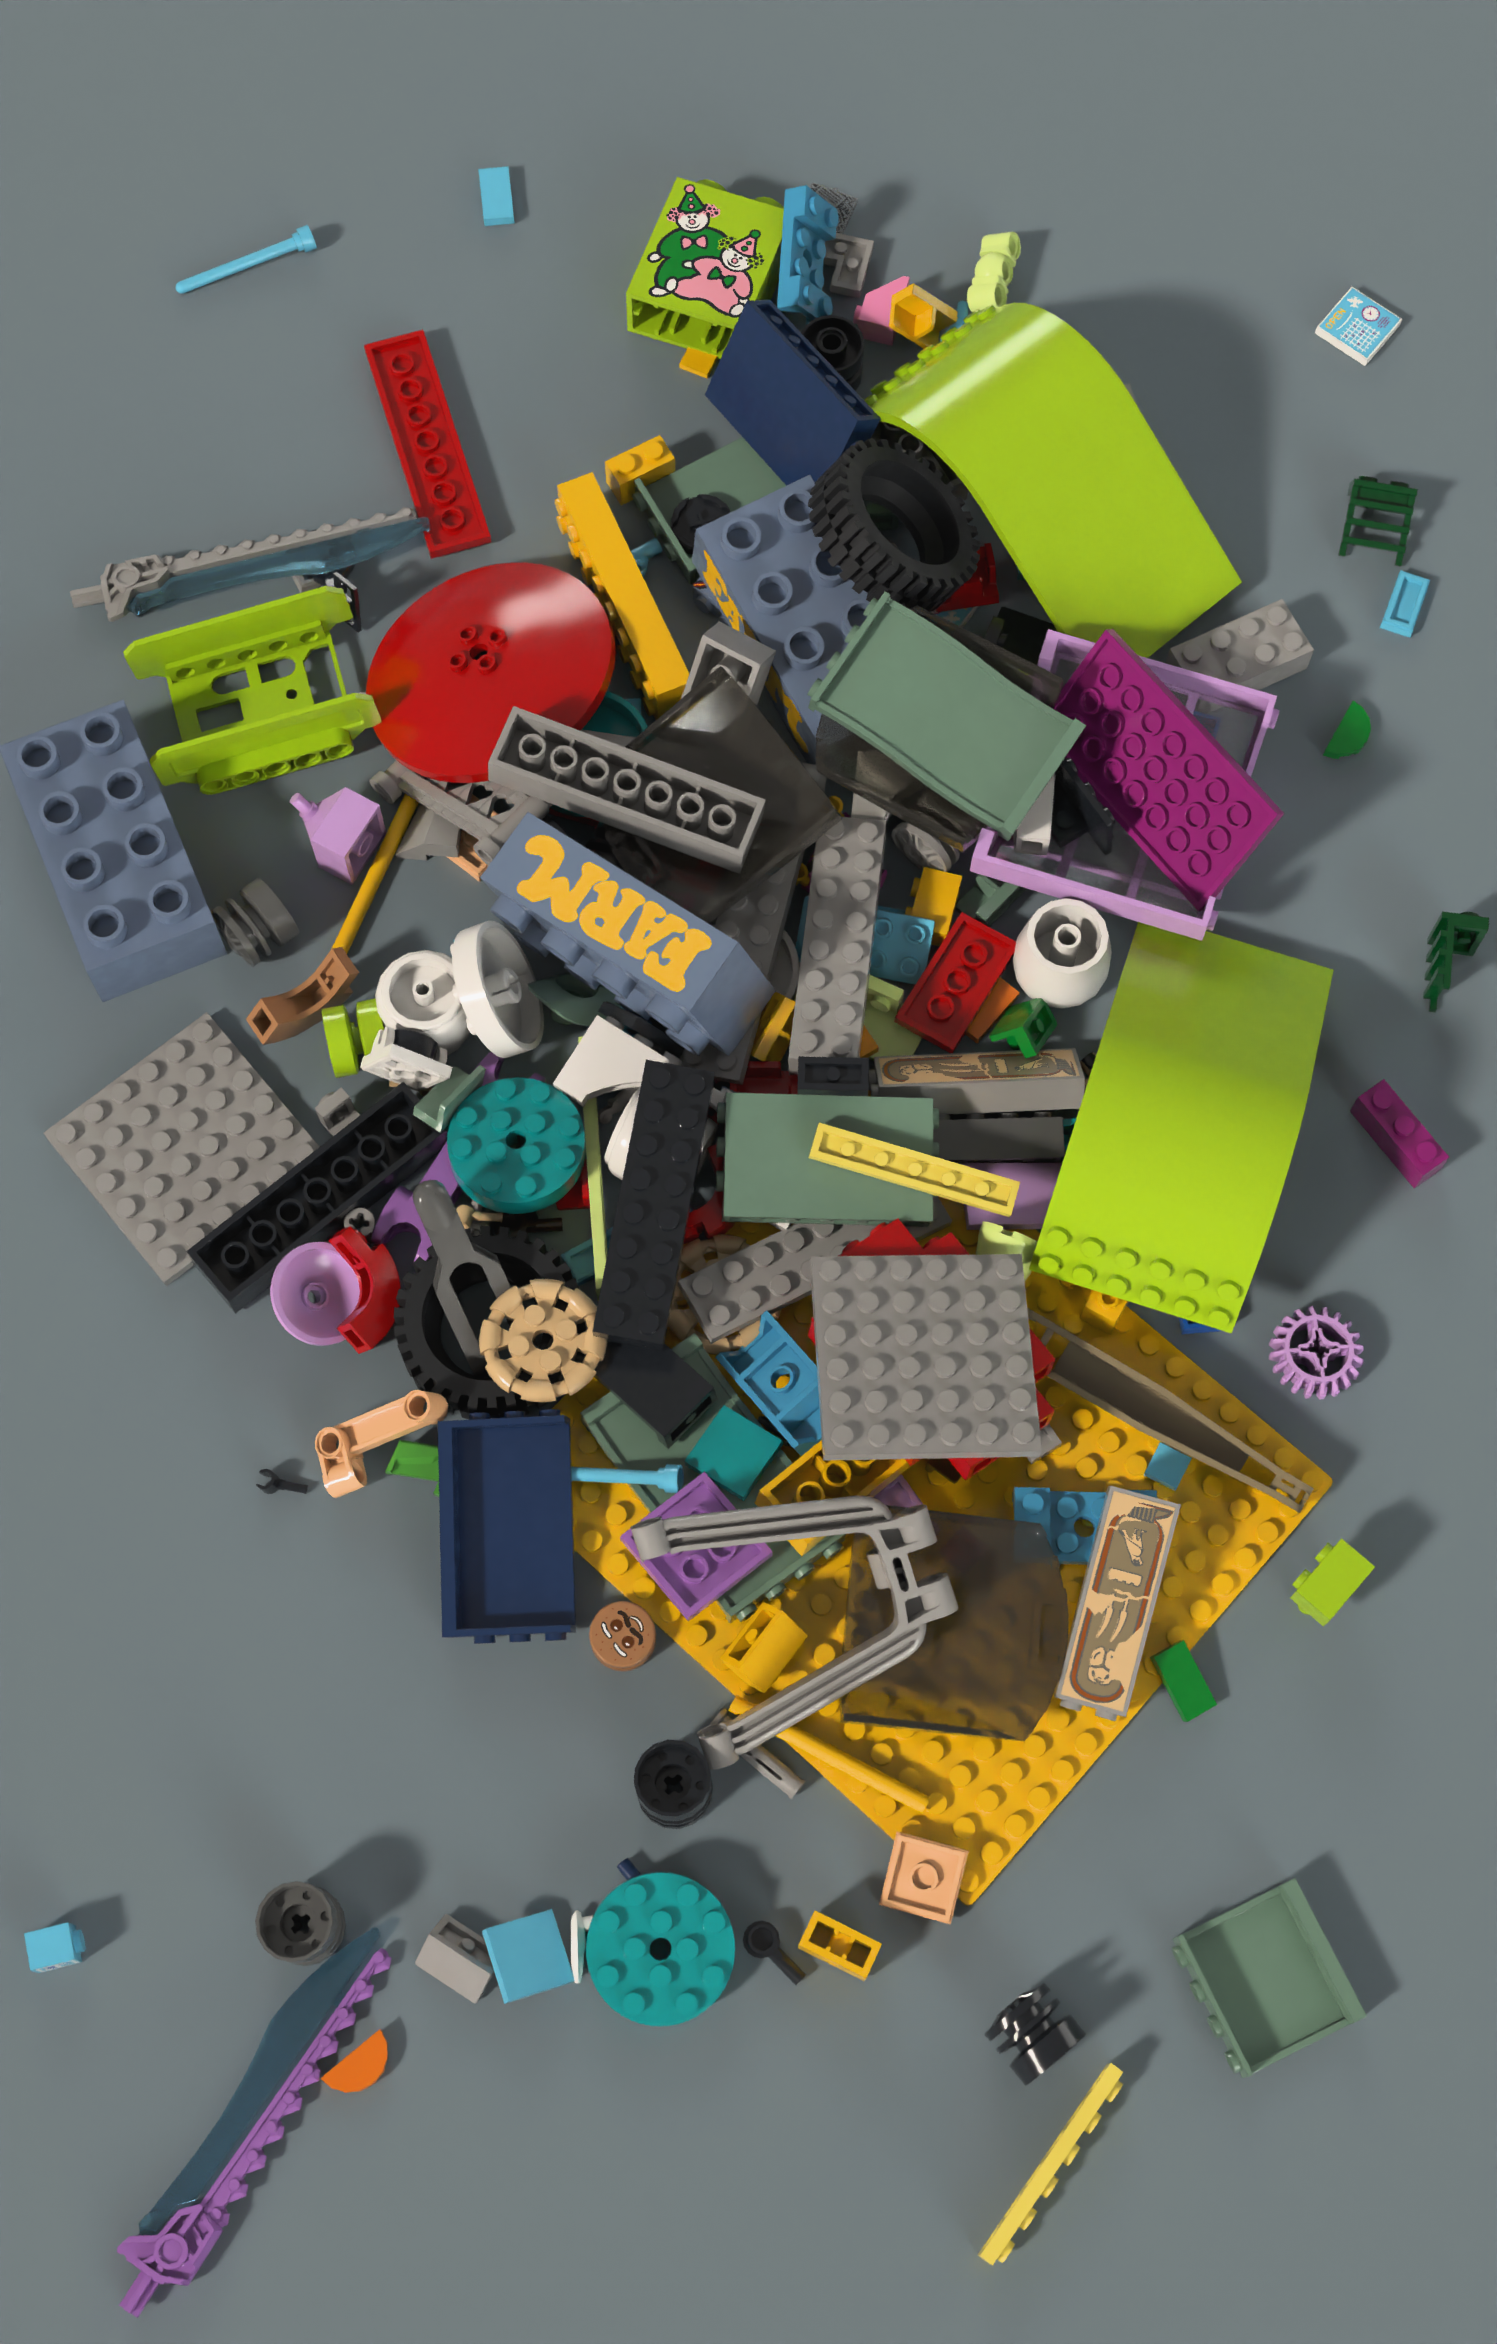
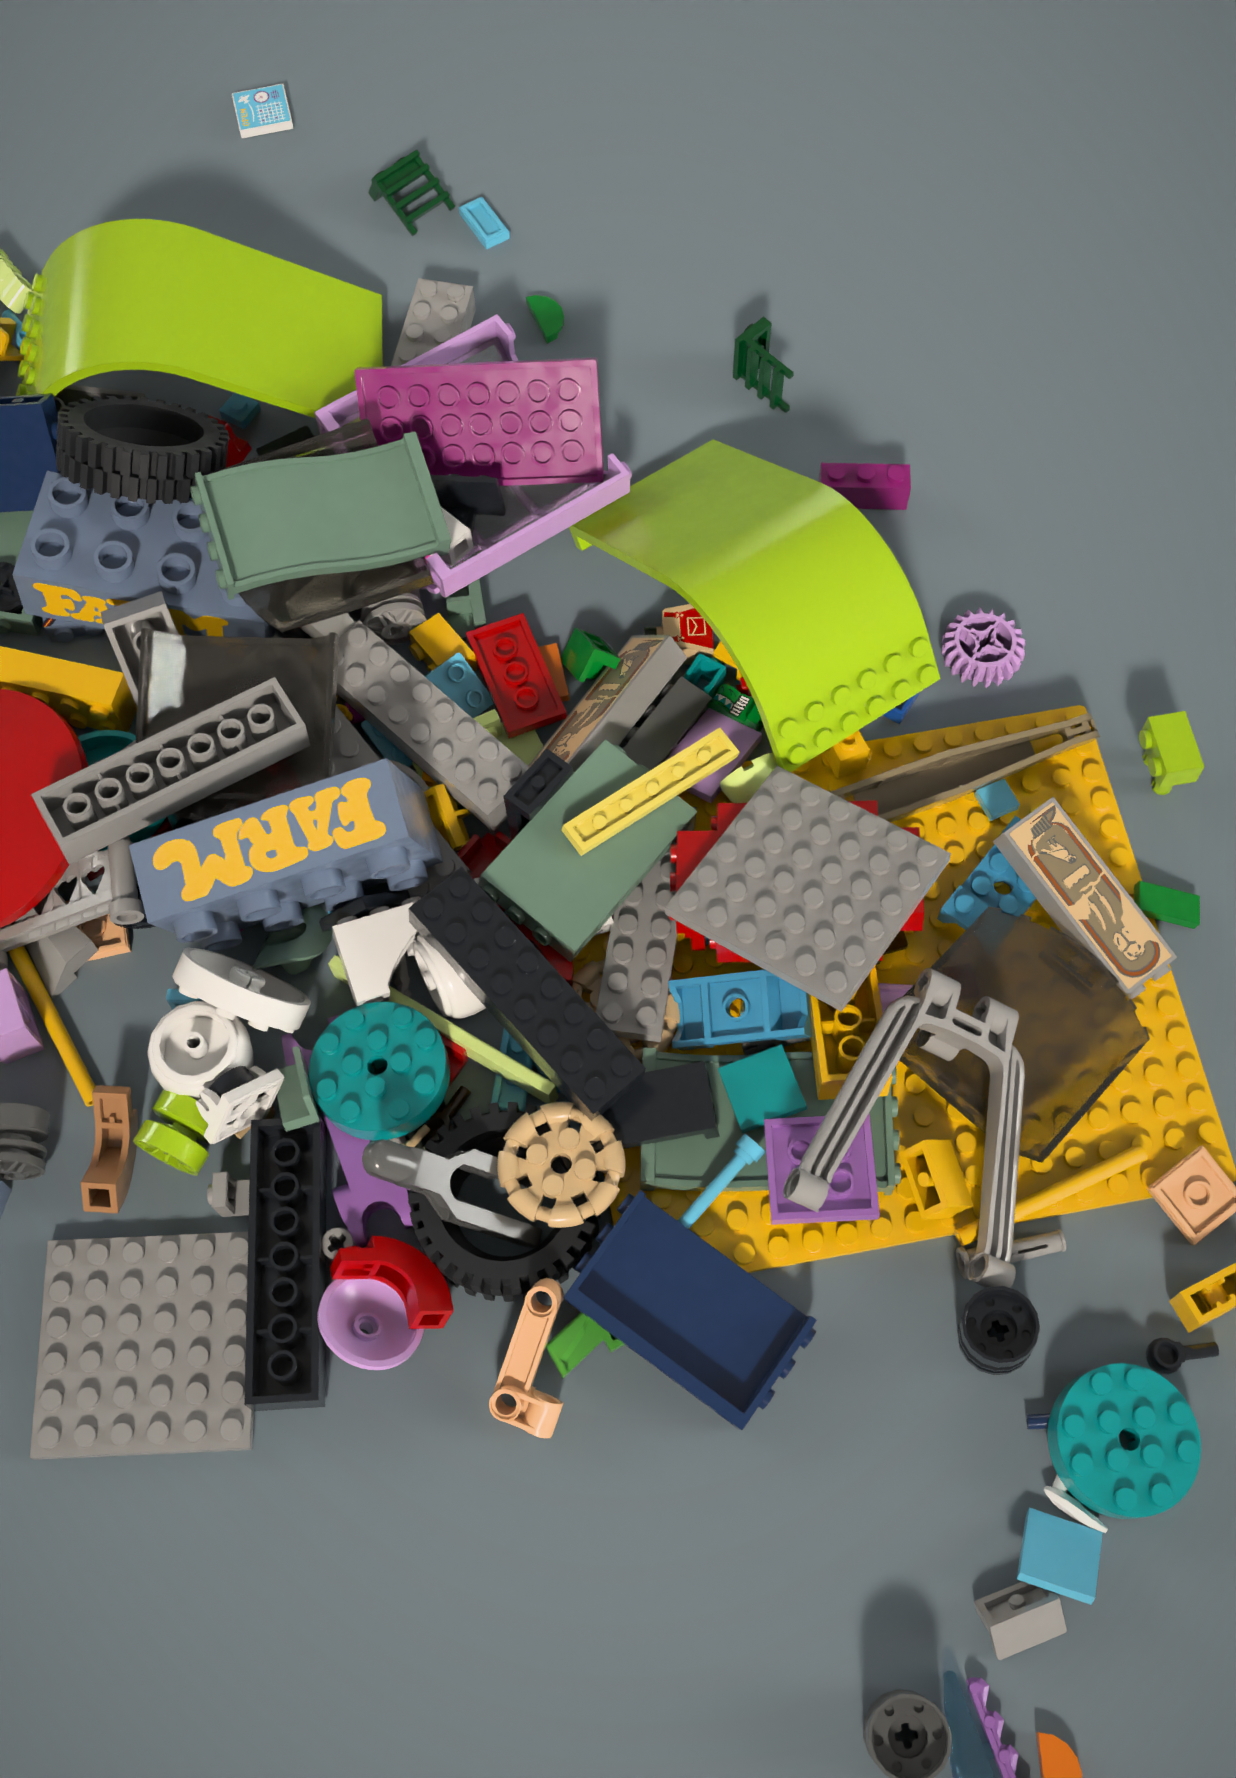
camera: 50 degrees left, 5 degrees down
(277, 1483) = (503, 1474): black hand -> none
(622, 1636) = (841, 1285): medium nougat head -> none
(1063, 953) = (557, 587): white piece -> none

